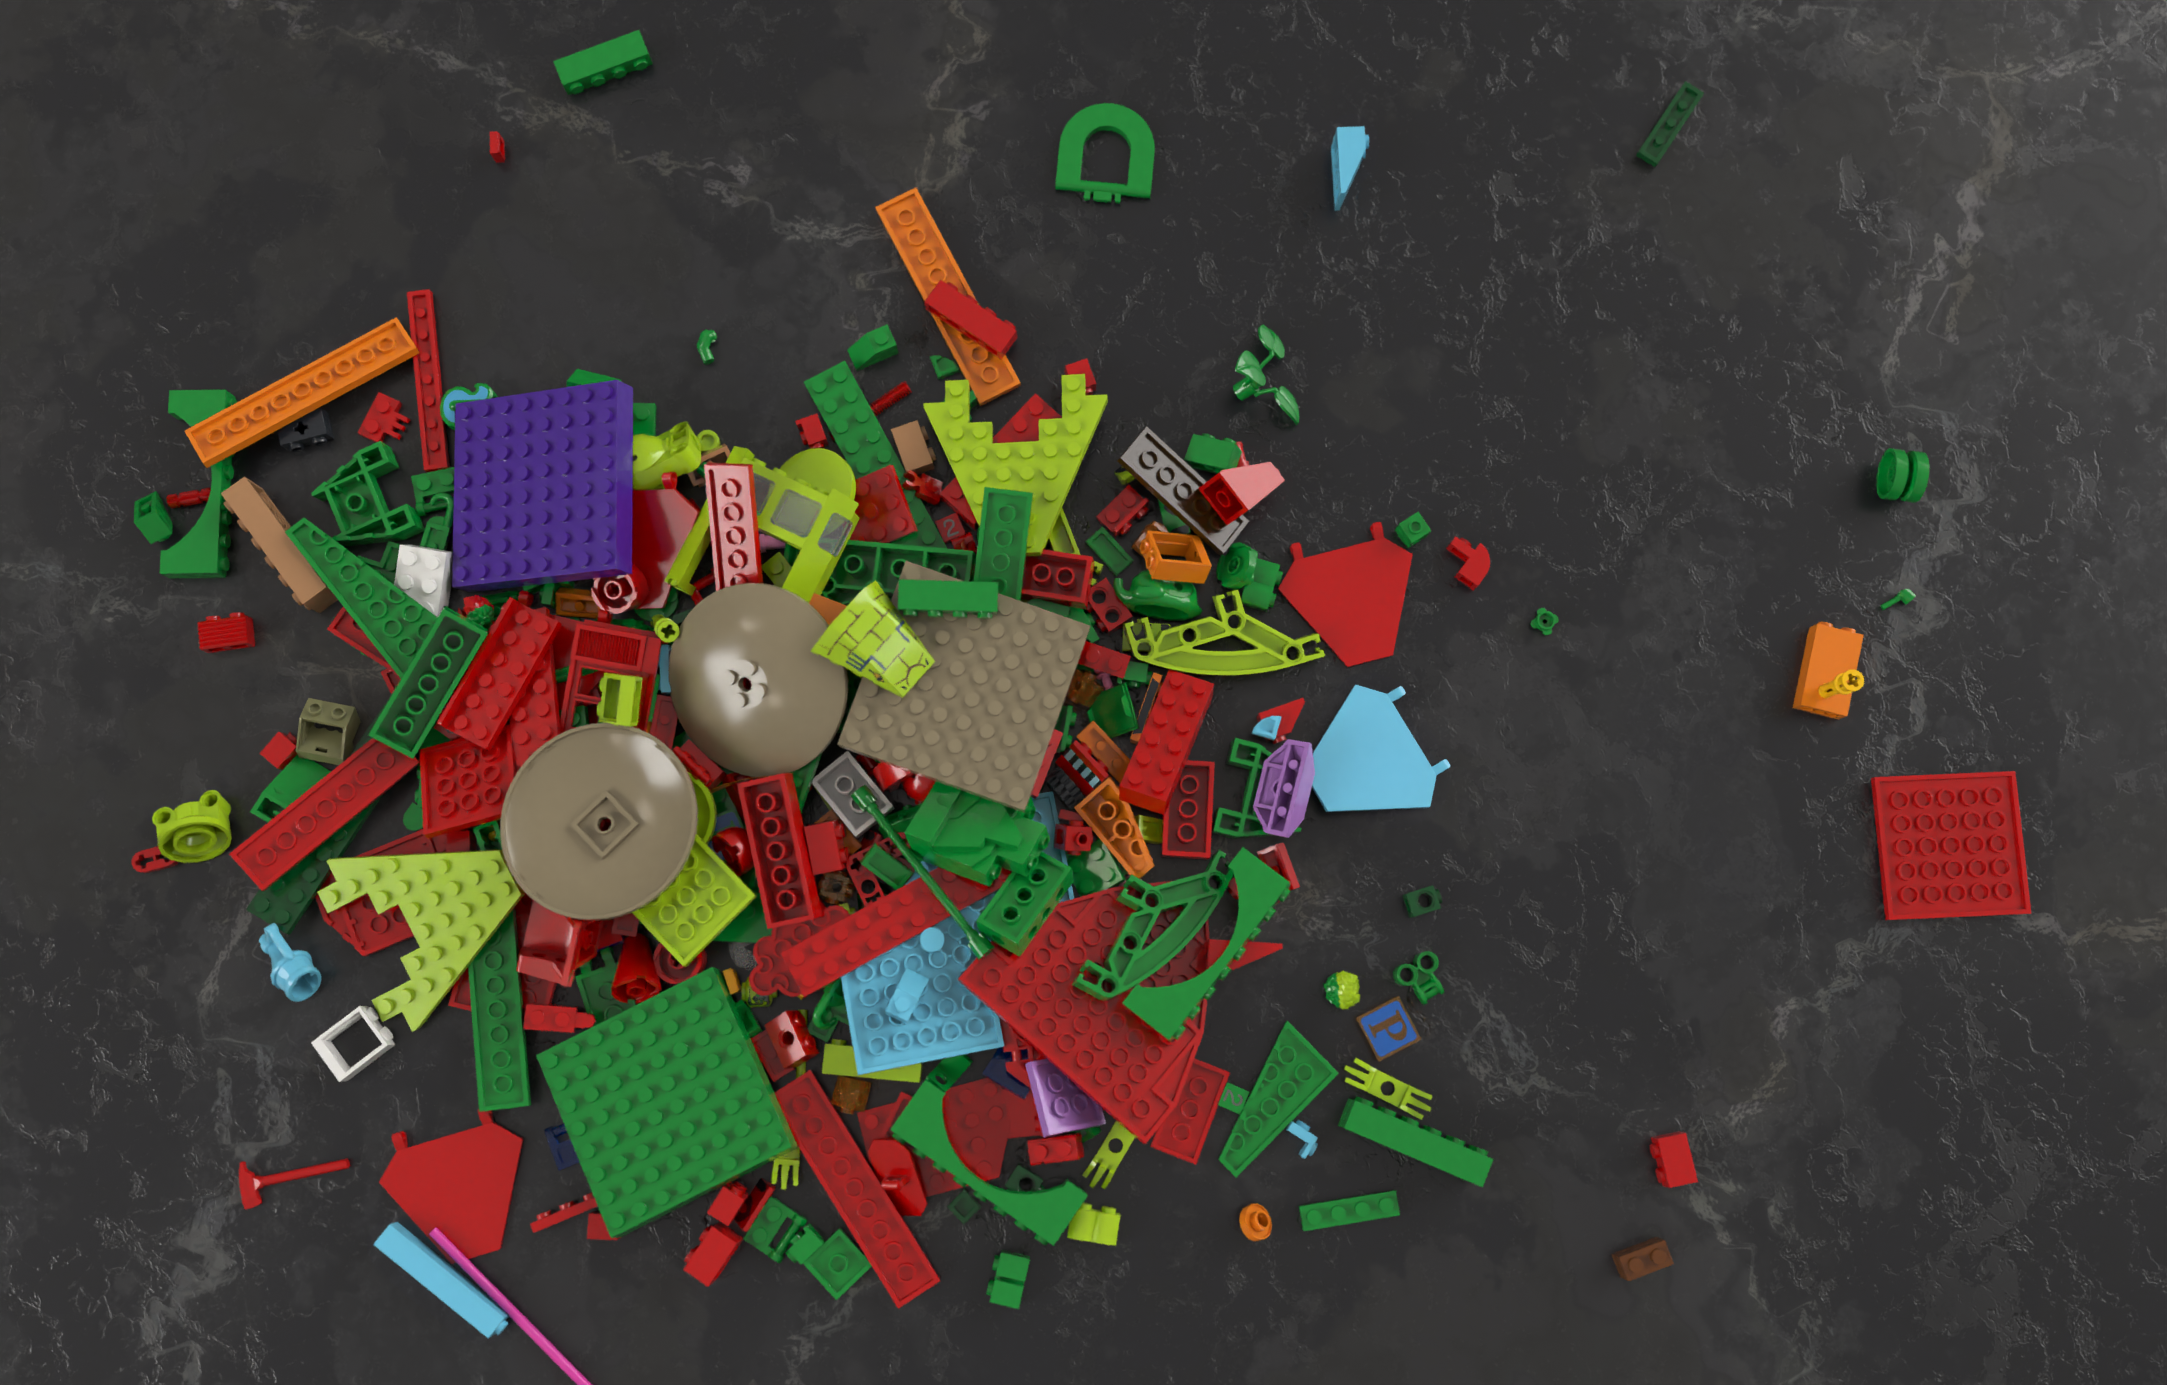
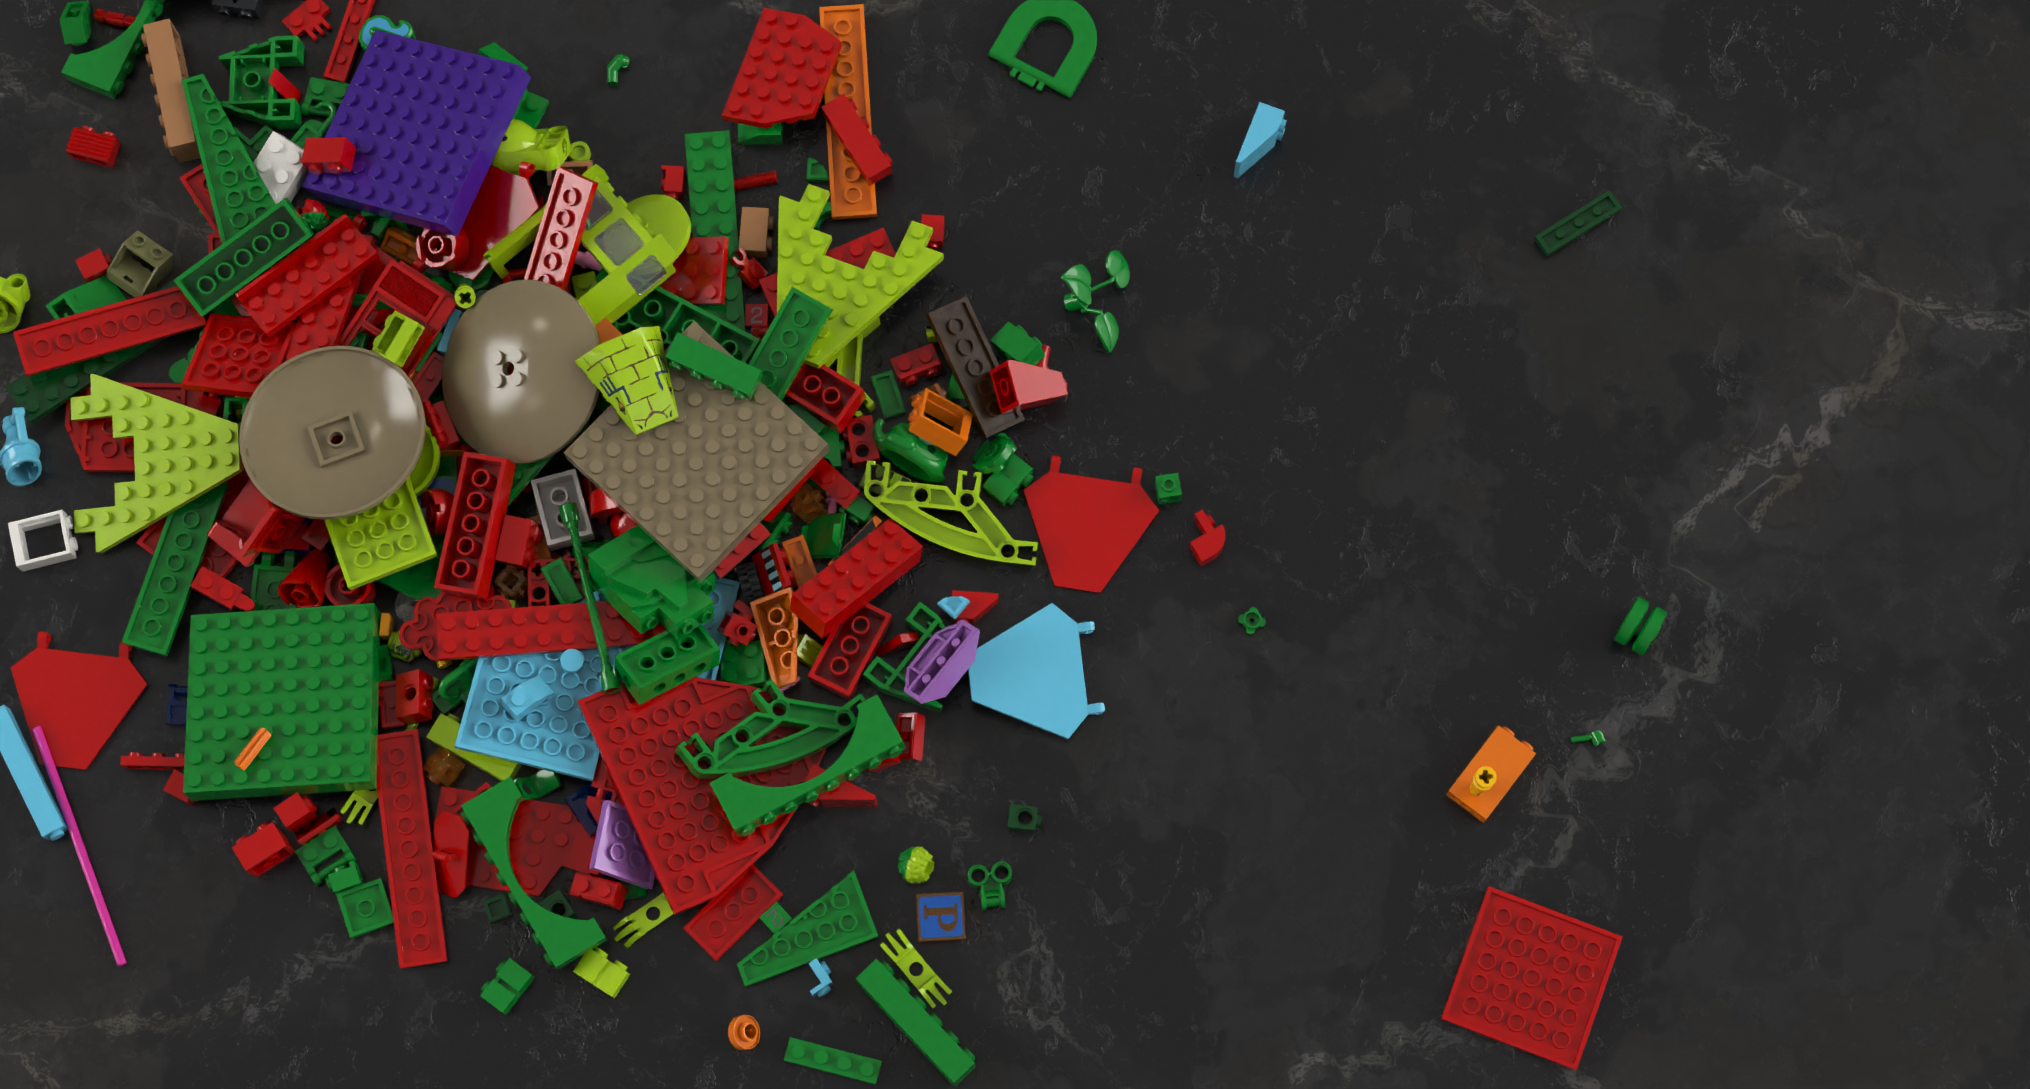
camera: 30 degrees right, 5 degrees down
(389, 495) = (284, 86): none -> red sticker
(466, 546) = (328, 155): none -> red brick
(660, 1165) = (252, 748): none -> orange axle
(870, 282) = (782, 71): none -> red plate
(1225, 789) = (898, 643): none -> red tile

